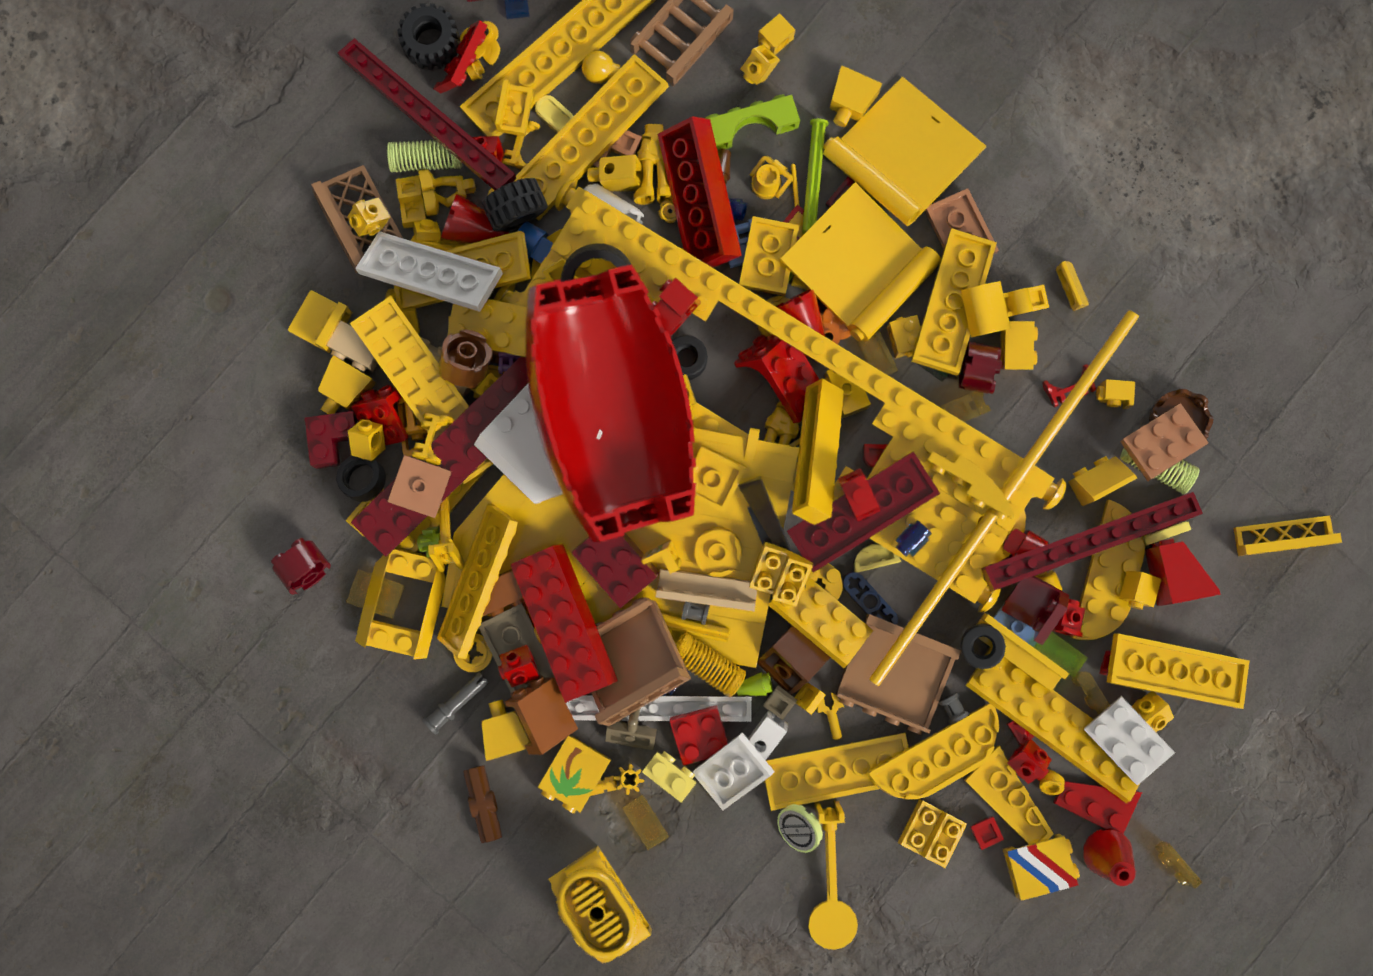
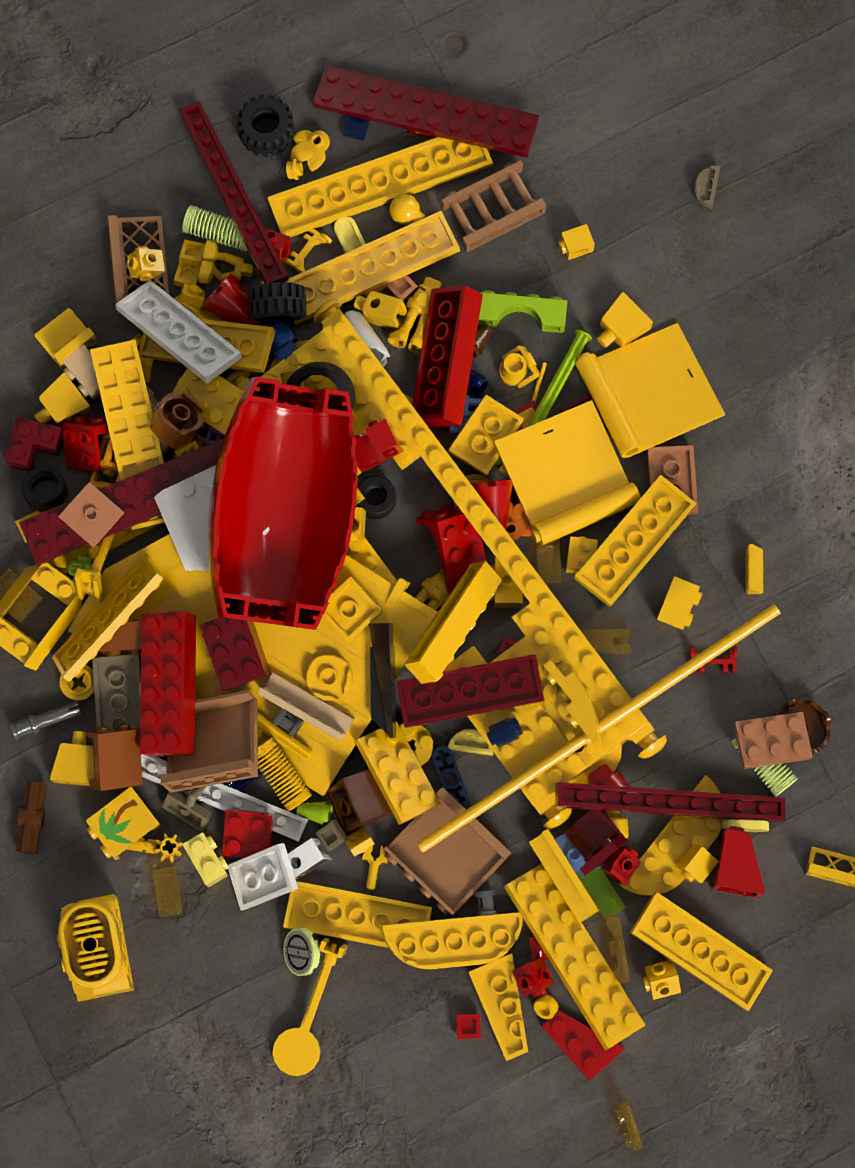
camera: 25 degrees right, 5 degrees down
(366, 440) = (63, 457): yellow brick -> none
(427, 452) = (110, 488): yellow piece -> none
(457, 67) = (277, 163): red wing -> none
(513, 108) = (312, 217): yellow bracket -> none
(518, 666) = (112, 707): red brick -> none
(663, 212) = (409, 361): yellow plate -> none
(668, 554) = (283, 661): yellow panel -> none
(759, 65) = (550, 262): yellow brick -> none
(780, 574) = (375, 716): yellow slope -> none
(859, 494) = (470, 673): red torso -> none
(932, 833) = (419, 1007): yellow slope -> none
(979, 368) = (634, 609): dark red brick -> none
(990, 308) = (662, 559): yellow plate -> none
(993, 657) = (518, 862): black tyre -> none
(1041, 867) = (505, 1076): panel -> none
(1100, 480) = (703, 753): yellow slope -> none
(1110, 856) = (570, 1089): red cone -> none
(1116, 393) = (751, 681): yellow brick -> none
(1129, 740) = (628, 992): white plate -> none

